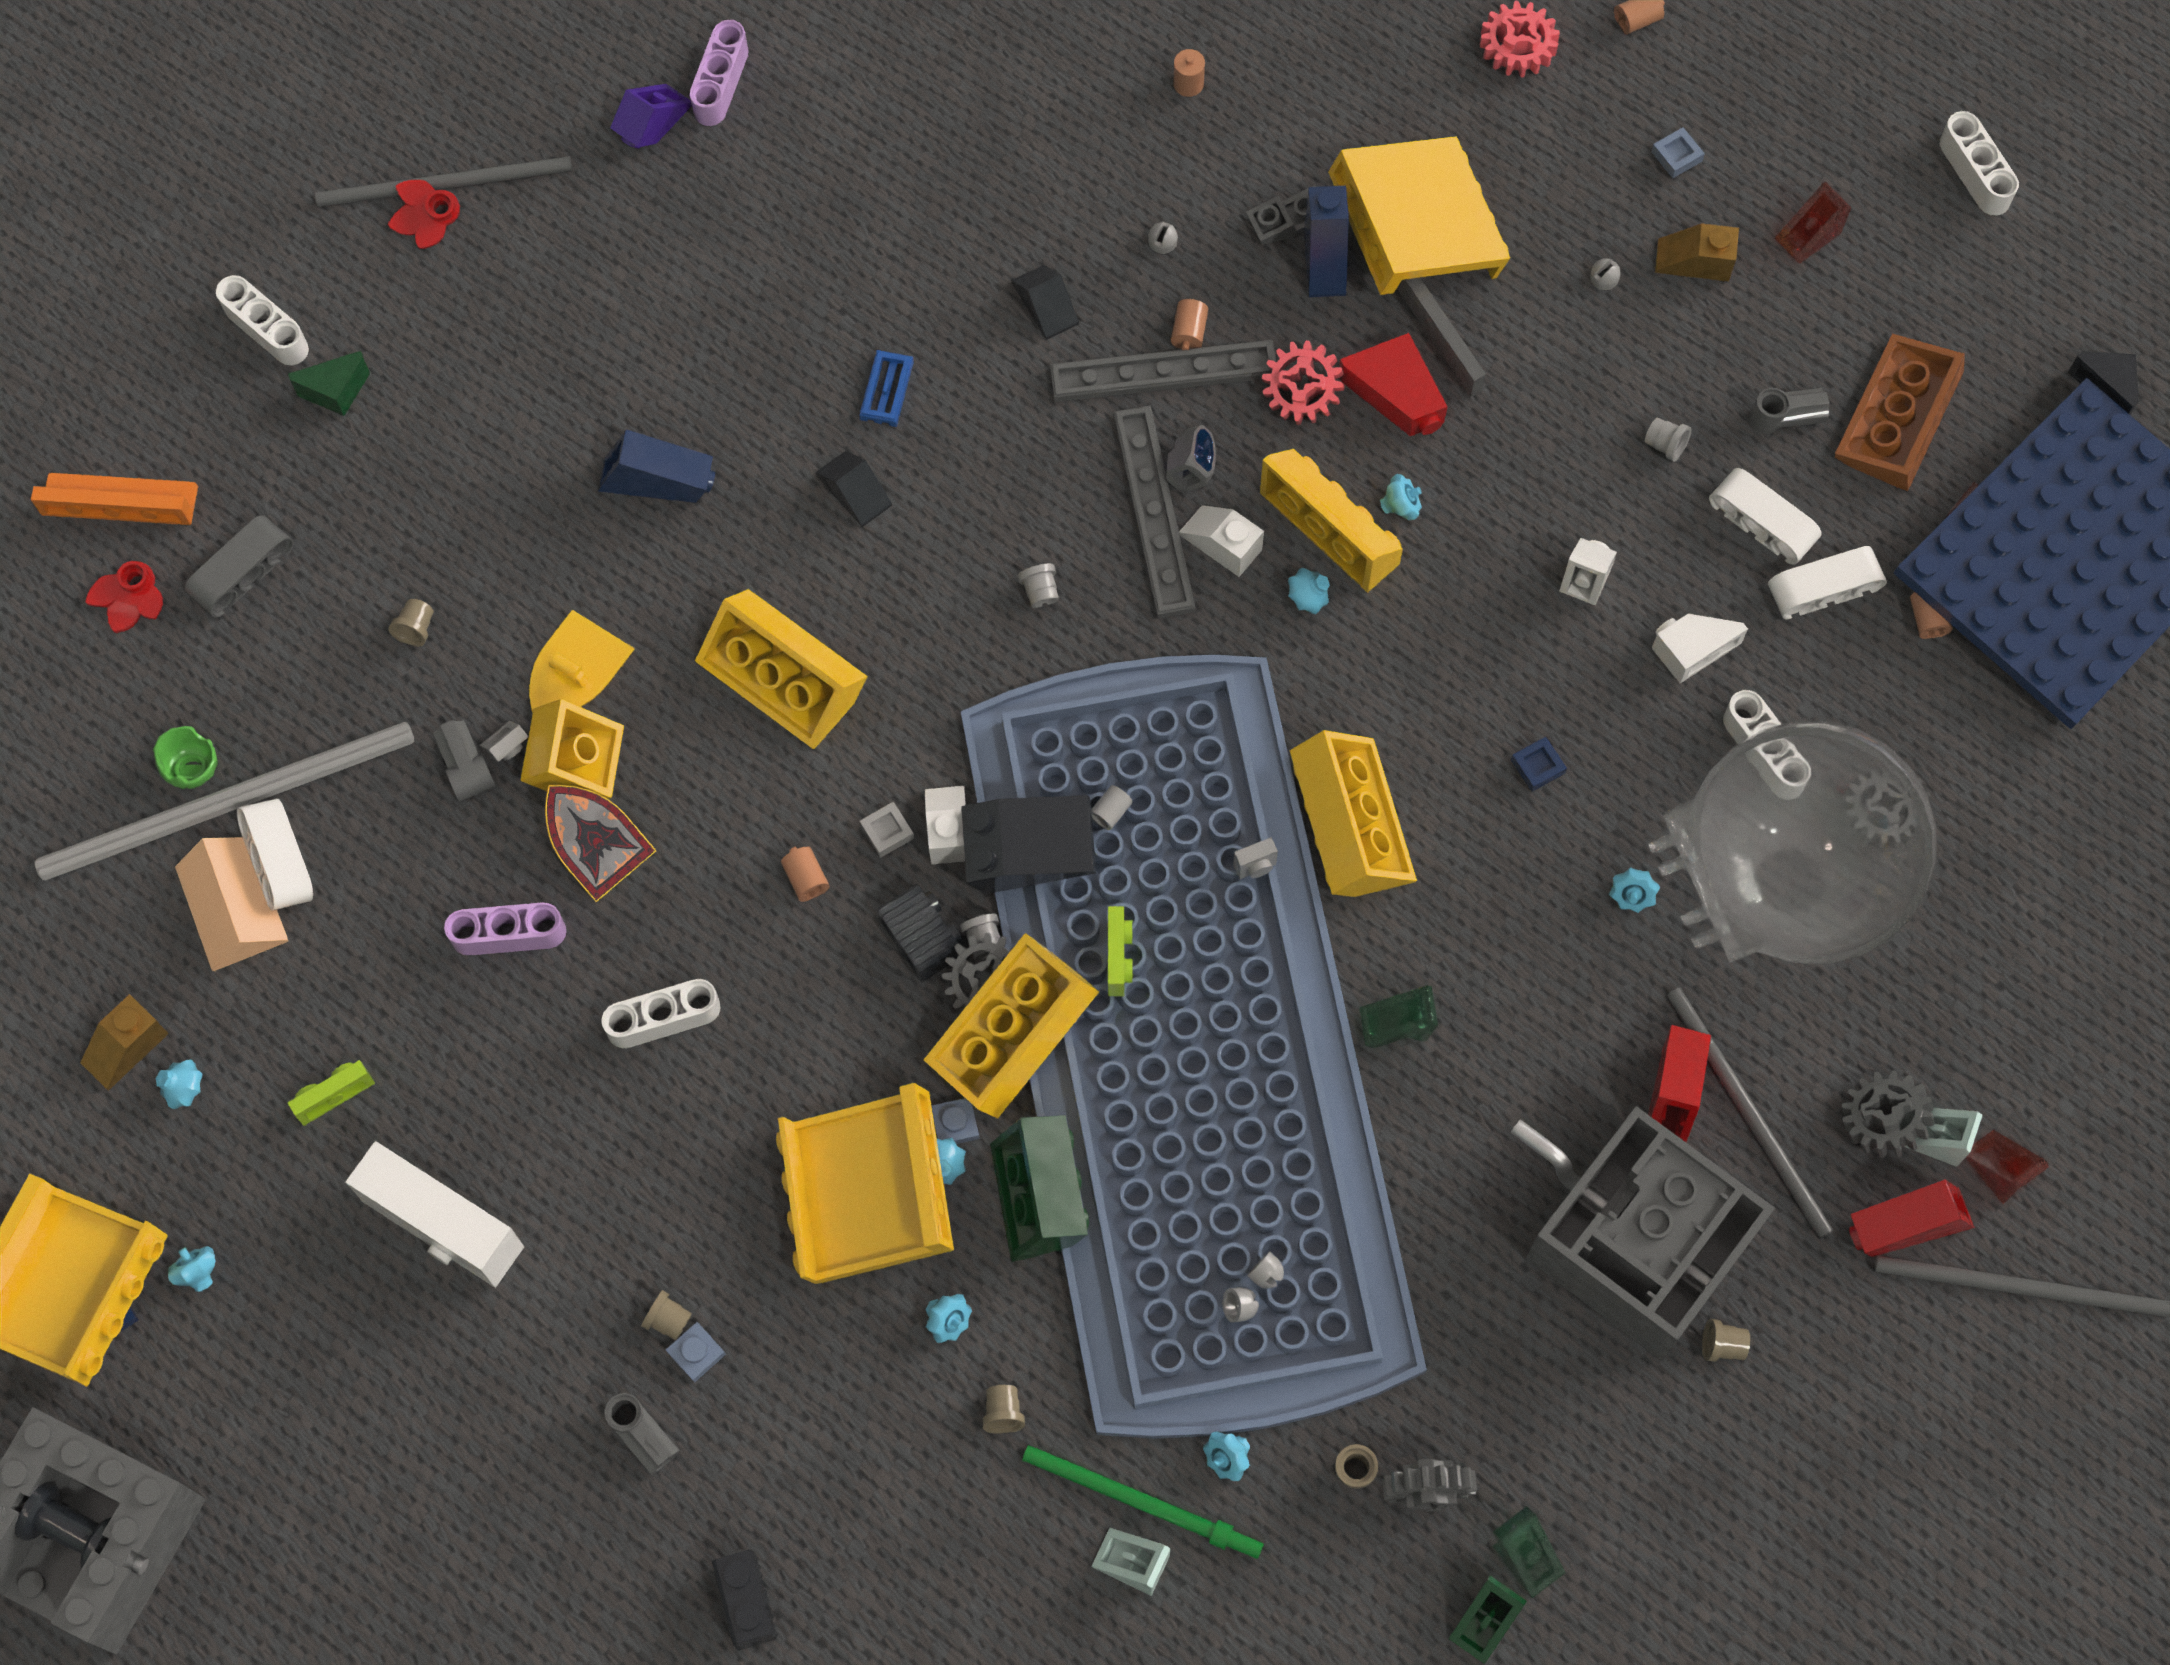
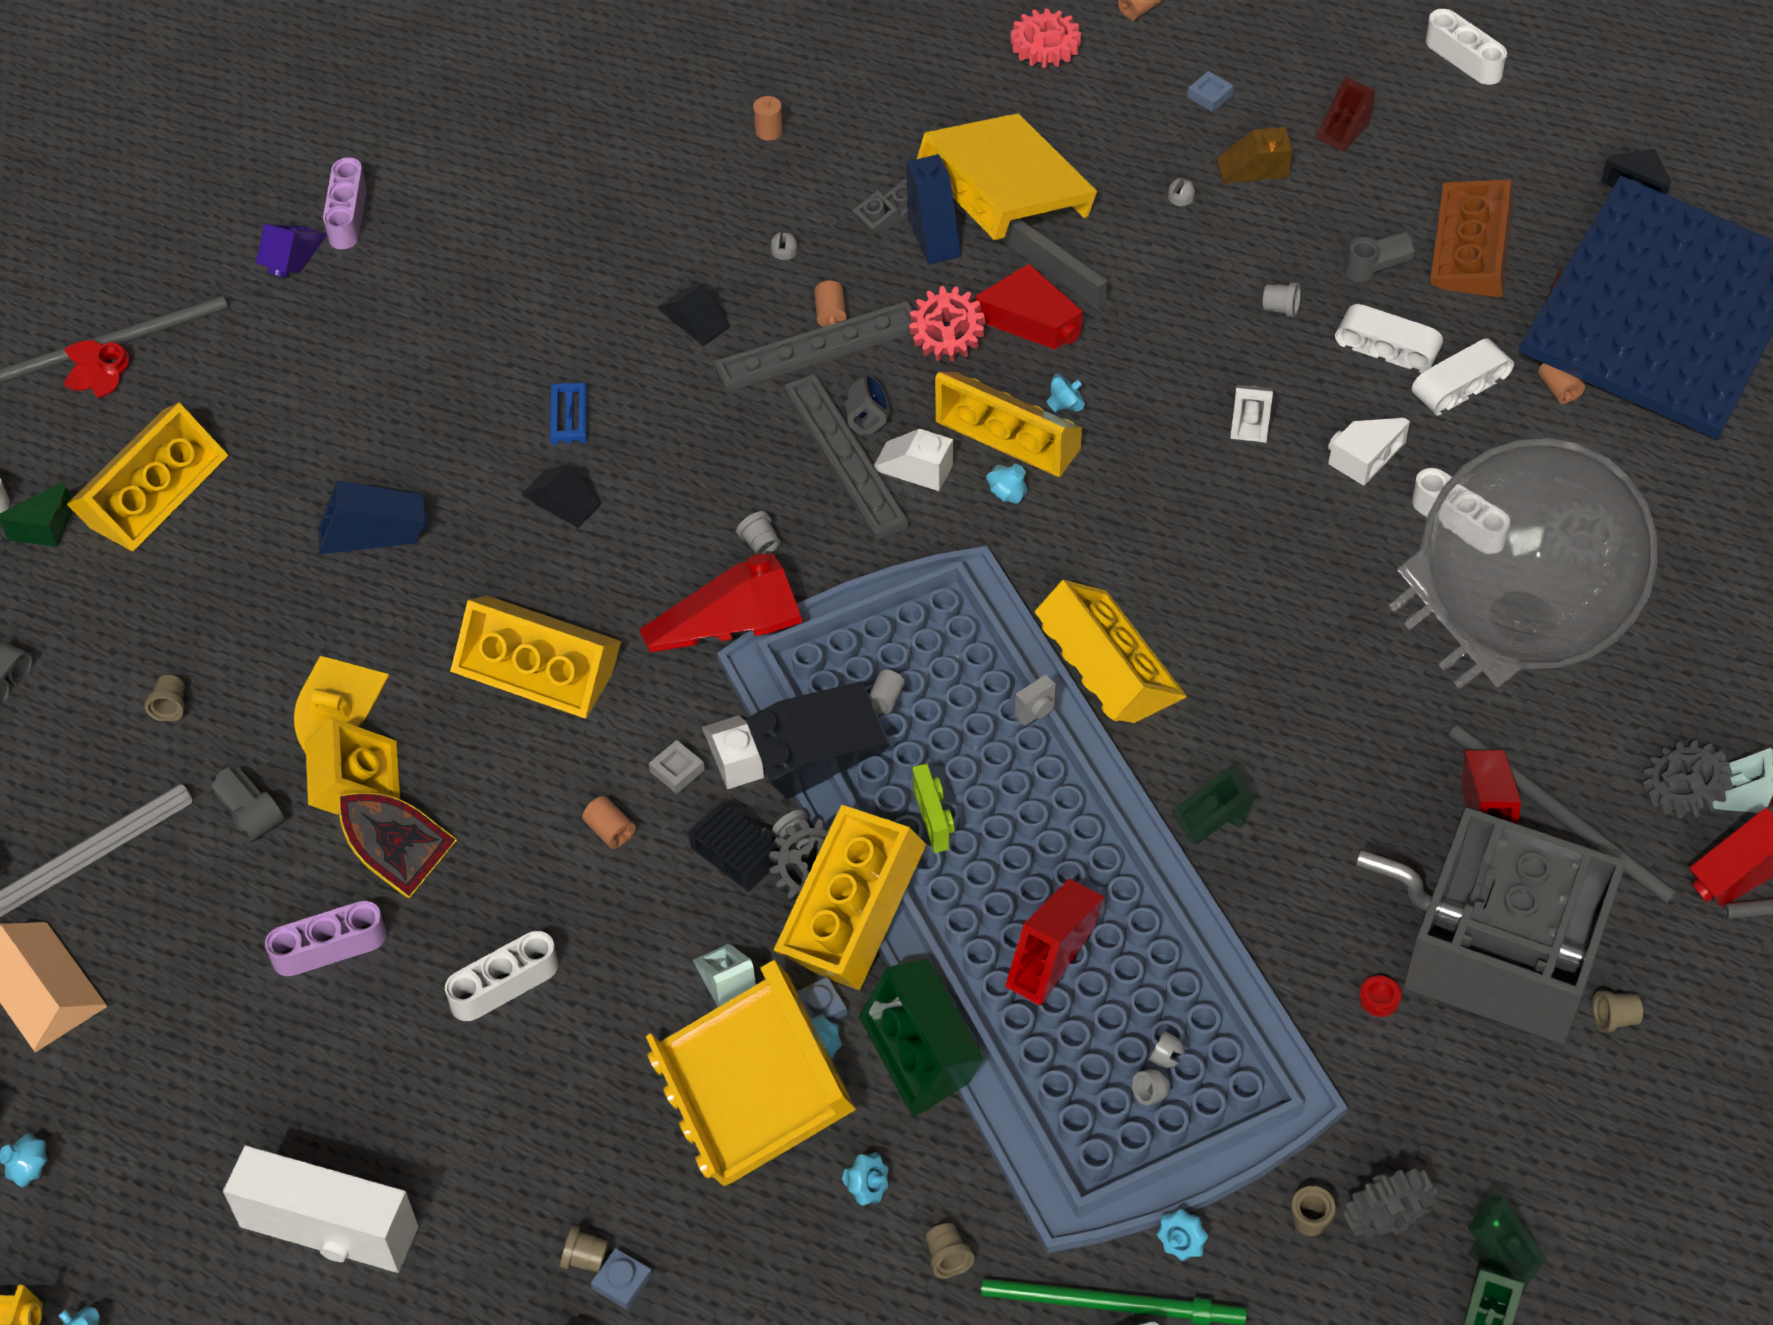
camera: 15 degrees left, 15 degrees down
(274, 854) = (76, 927): white beam -> none
(342, 1085) = (184, 1128): lime plate -> none
(448, 362) = (148, 478): none -> yellow slope
(505, 742) = (284, 778): light grey plate -> none
(873, 1067) = (726, 973): none -> light aqua slope
(992, 663) = (741, 599): none -> red wedge
(1192, 1127) = (1053, 940): none -> red slope
(1499, 1260) = (1380, 996): none -> red tile
(1538, 764) = (1263, 574): dark blue plate -> none
(1634, 890) = (1388, 653): medium azure piece -> none

